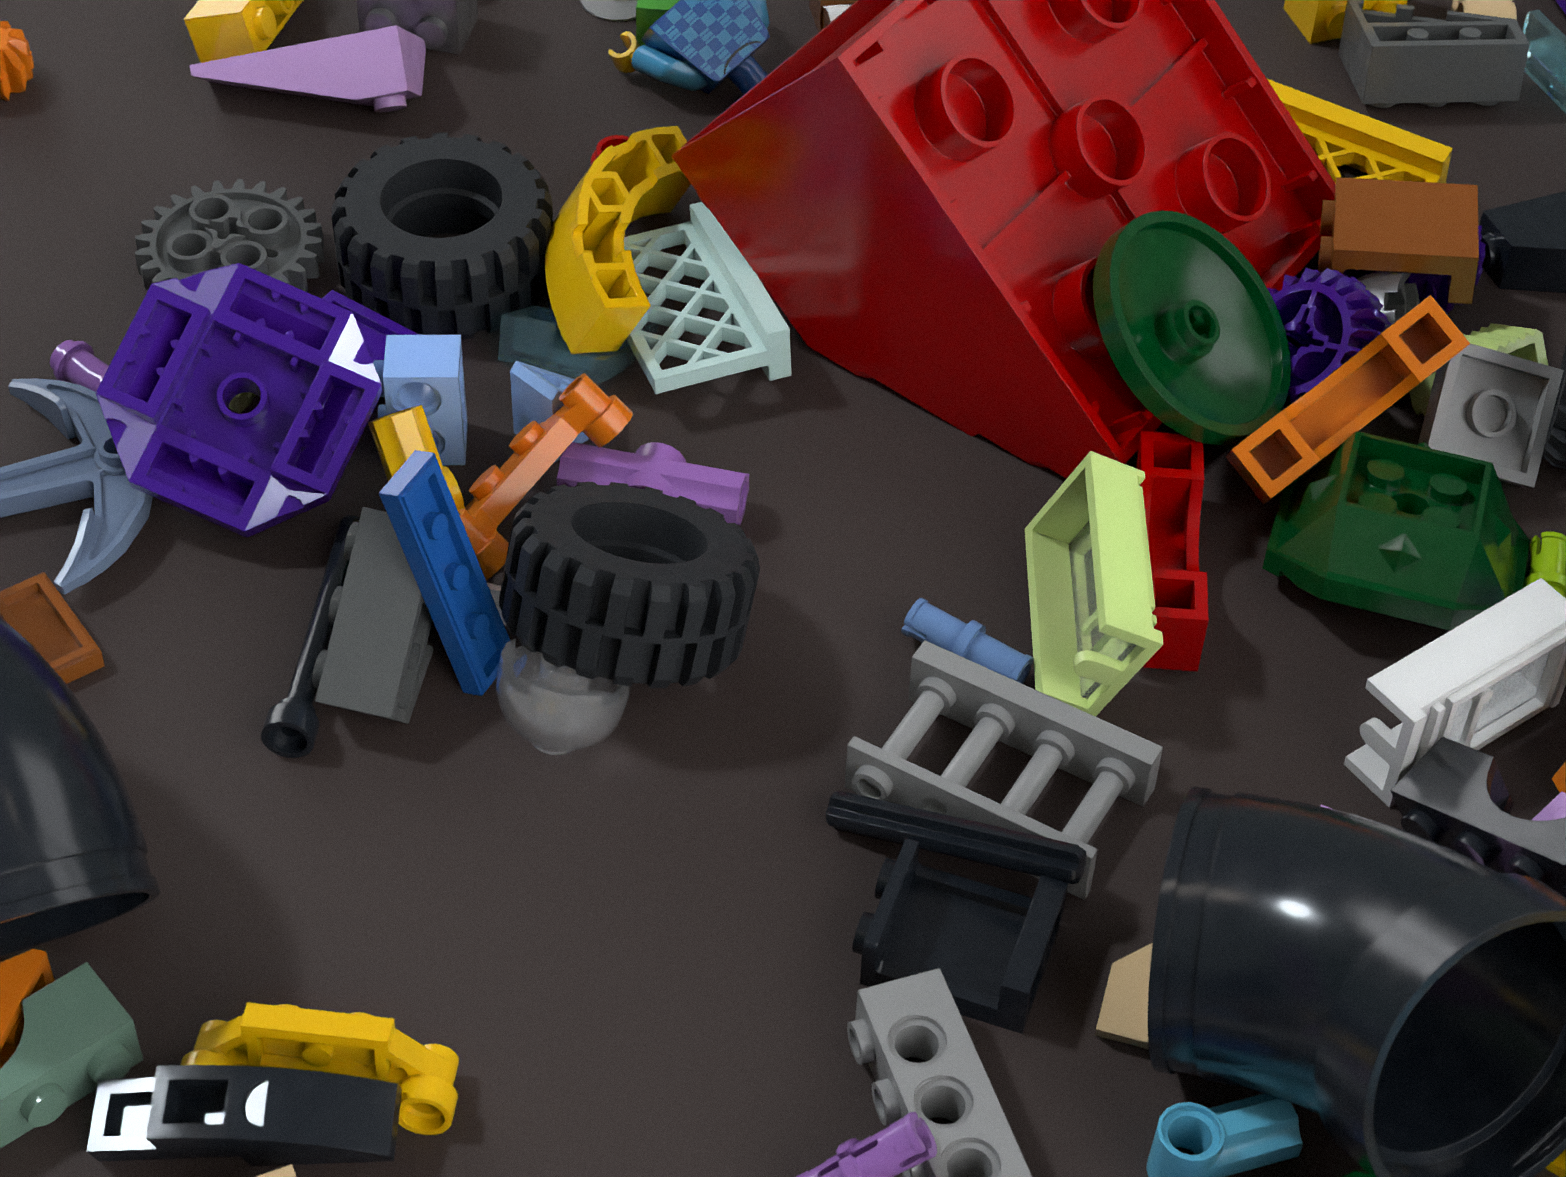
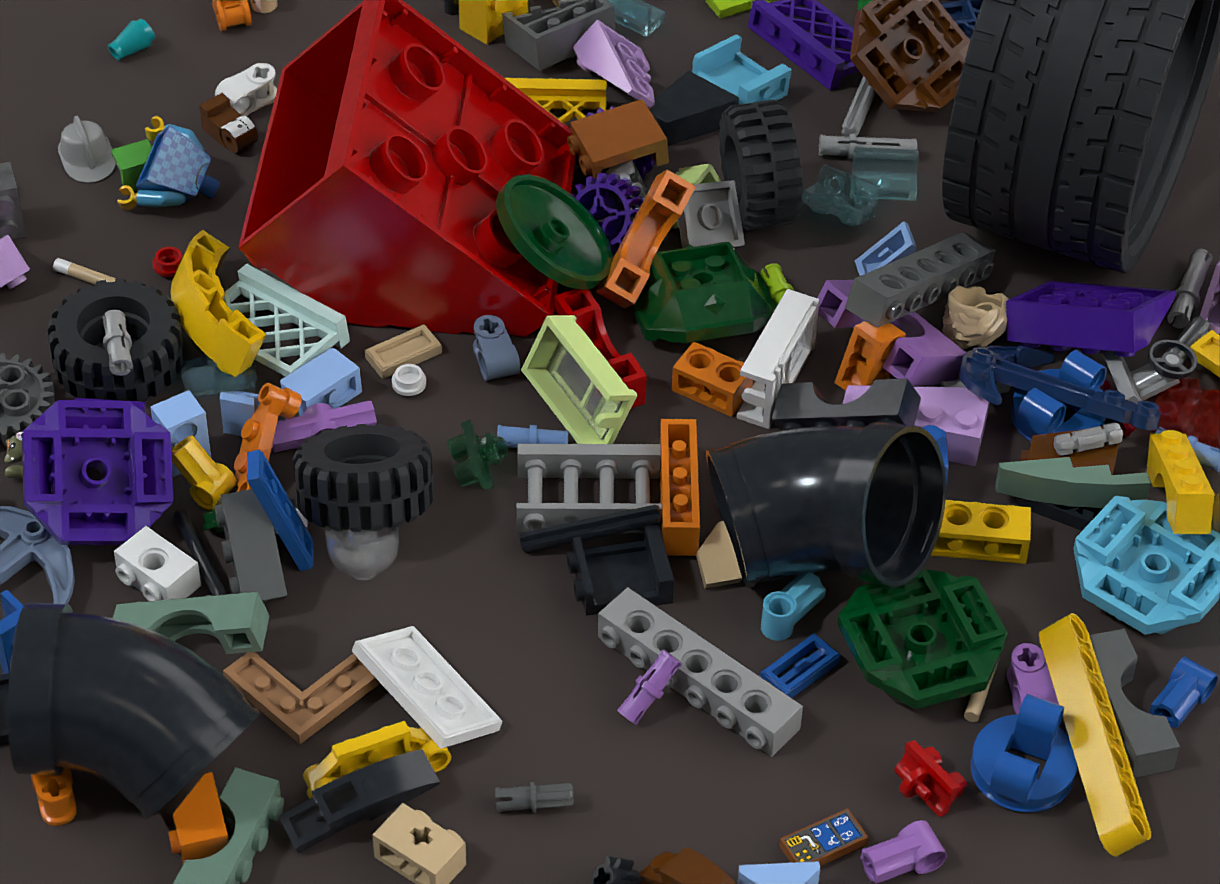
camera: 30 degrees left, 0 degrees up
(245, 589) = (156, 567): none -> white brick
(259, 715) = (234, 619): none -> sand green arch
(292, 924) = (296, 711): none -> medium nougat plate
(400, 245) = (117, 342): none -> light grey pin
(491, 130) = (80, 272): none -> tan bar
(498, 981) = (427, 686): none -> white tile
(704, 417) = (326, 380): none -> light blue panel
(839, 471) = (408, 380): none -> white plate
(861, 632) = (479, 451): none -> clear green hips
(865, 425) = (403, 349): none -> tan tile
(1001, 479) = (494, 349): none -> sand blue piece
(1124, 869) = (679, 487): none -> orange brick
(1322, 672) = (710, 379): none -> orange brick
(1490, 130) = (615, 60): none -> lavender wedge

